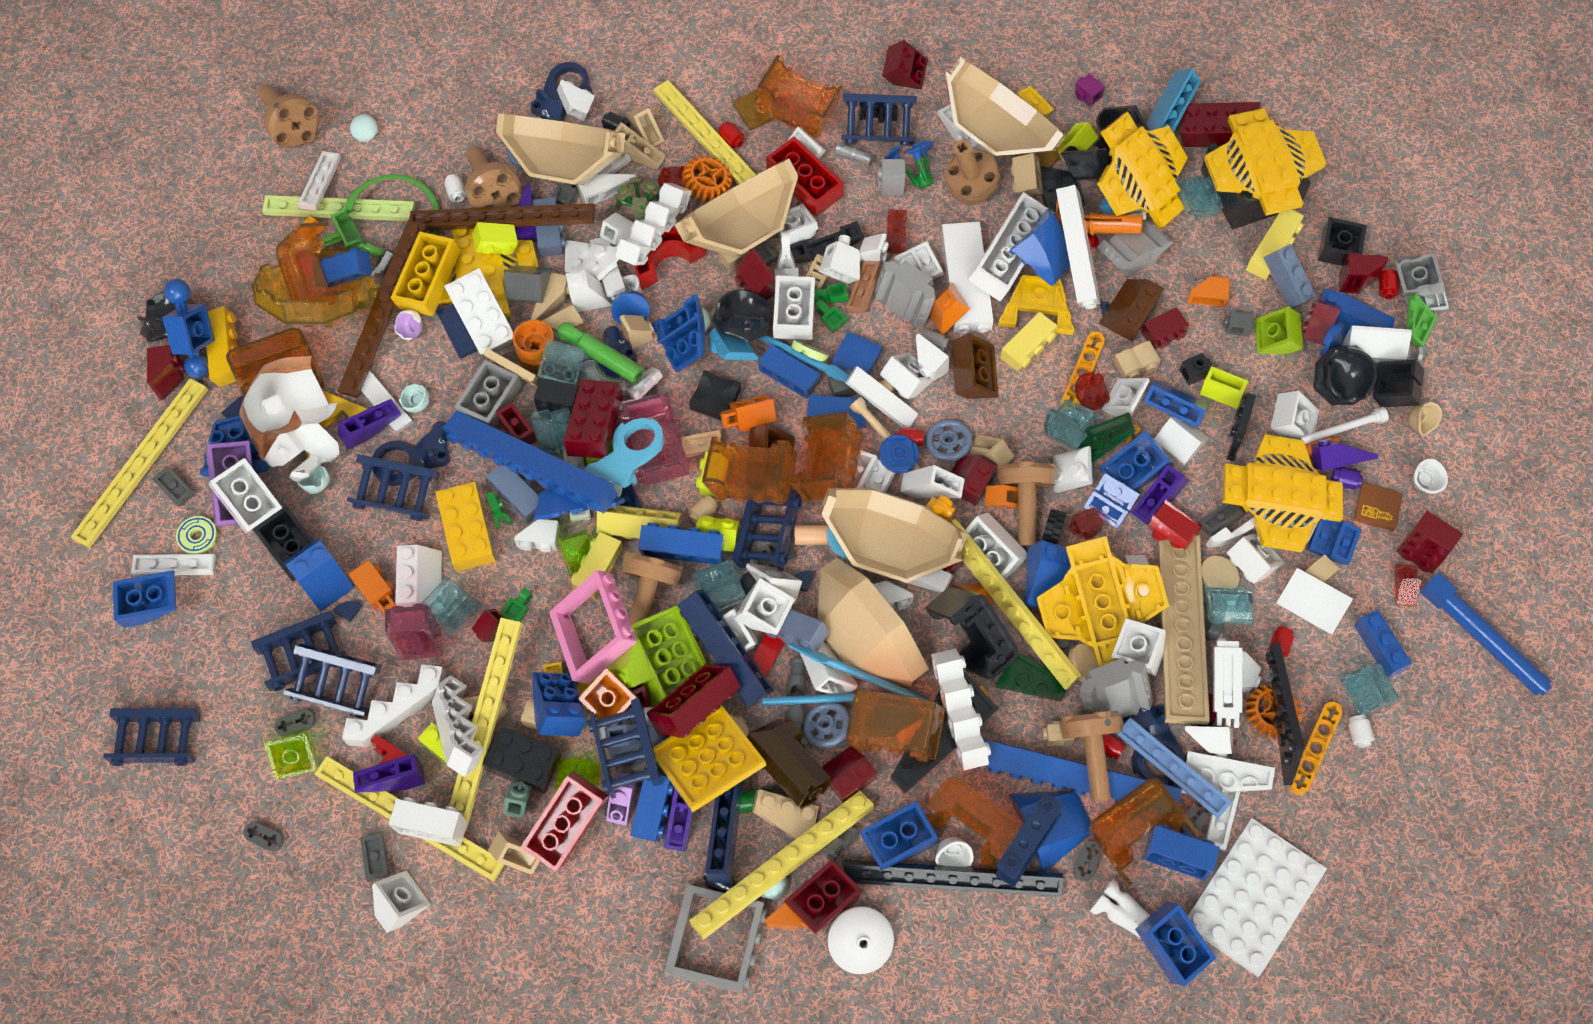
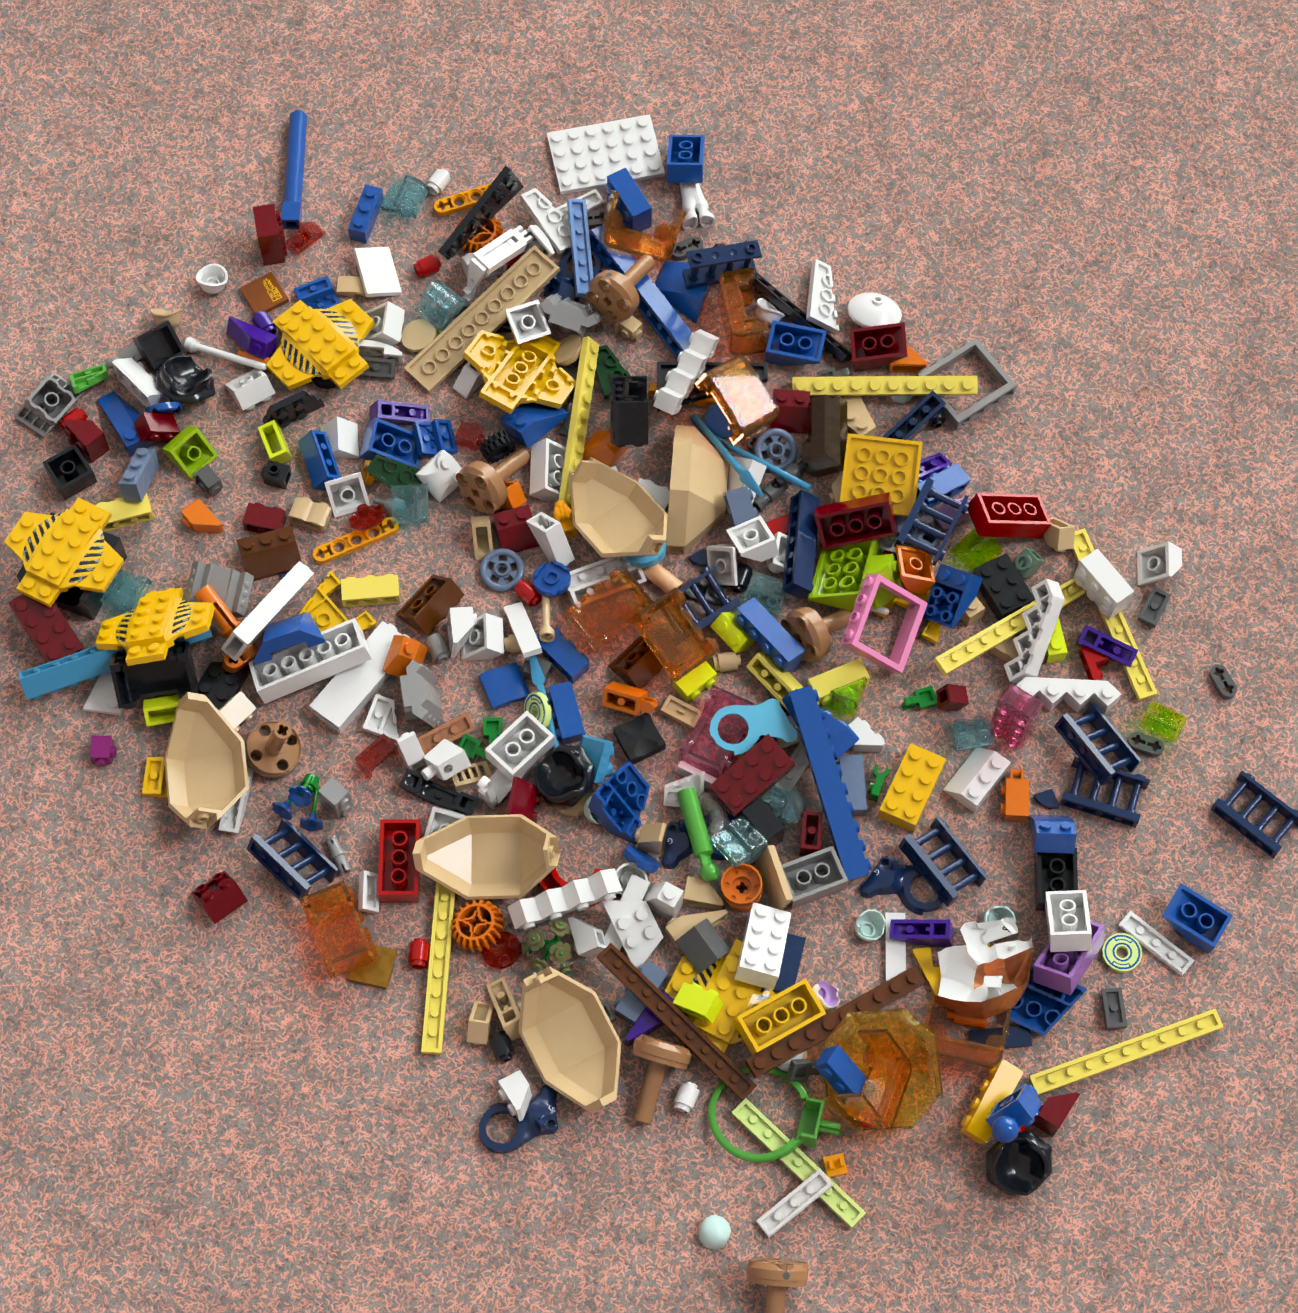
camera: 140 degrees left, 0 degrees up
(917, 907) = (820, 298): none -> white wing
(1173, 526) = (415, 383): red slope -> none

